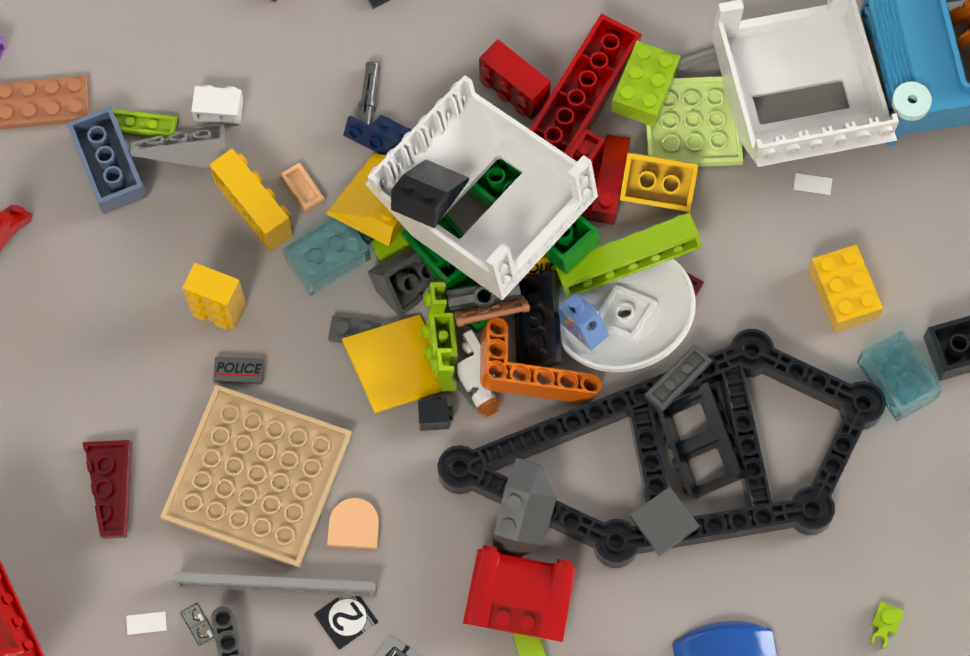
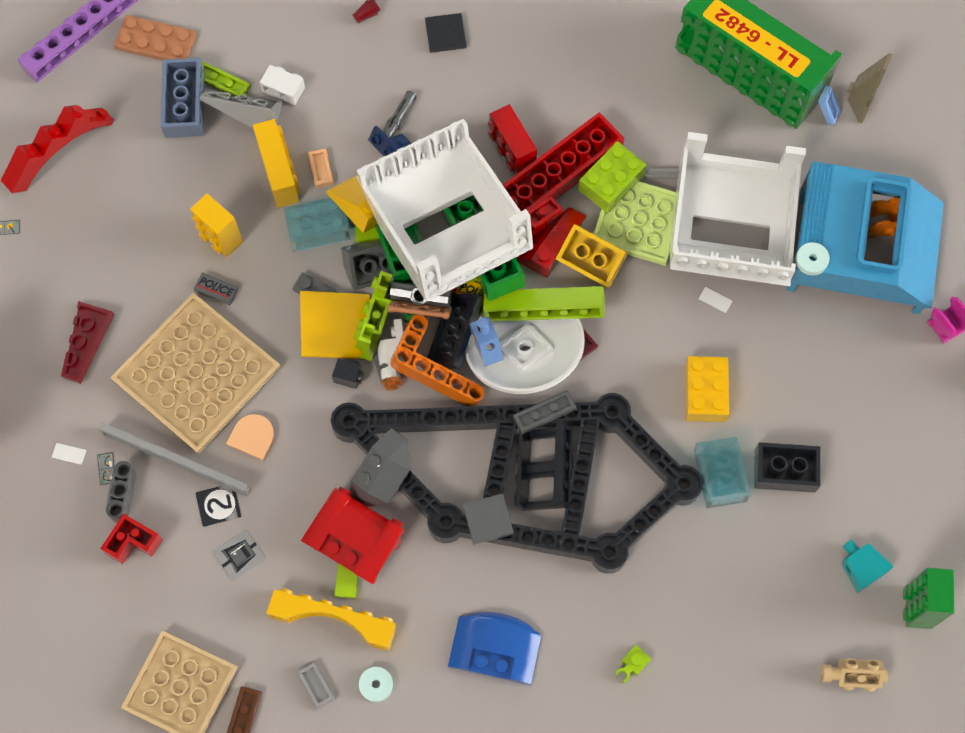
camera: 20 degrees right, 0 degrees up
(427, 192) = (398, 198): black slope -> none

